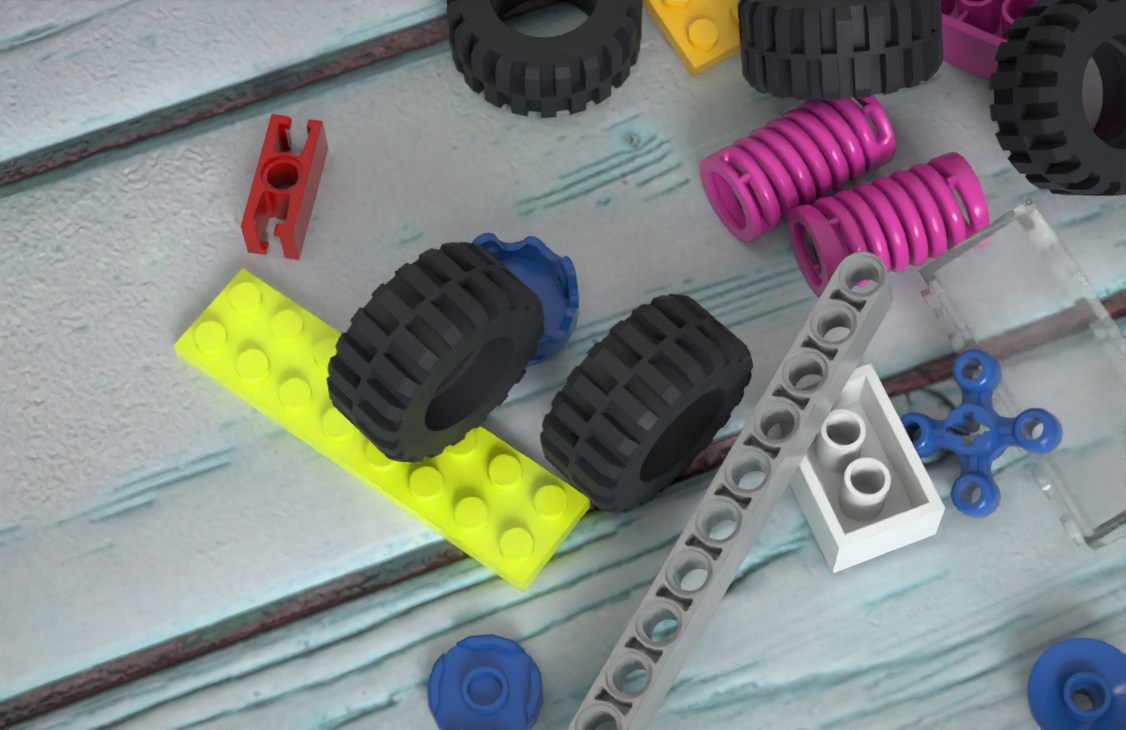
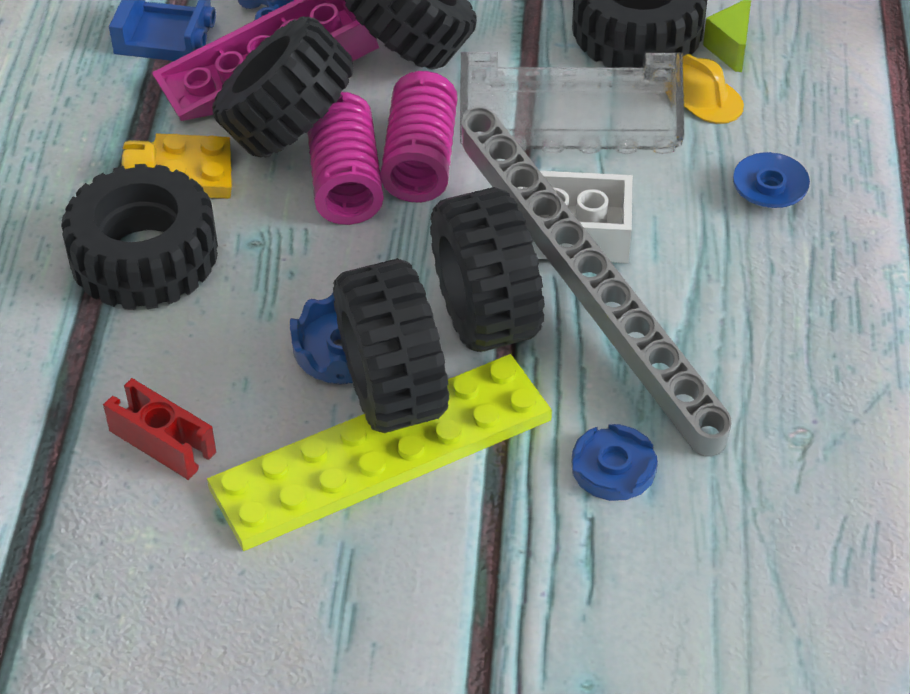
camera: 65 degrees left, 15 degrees down
(978, 455) = (594, 136): blue gear -> none

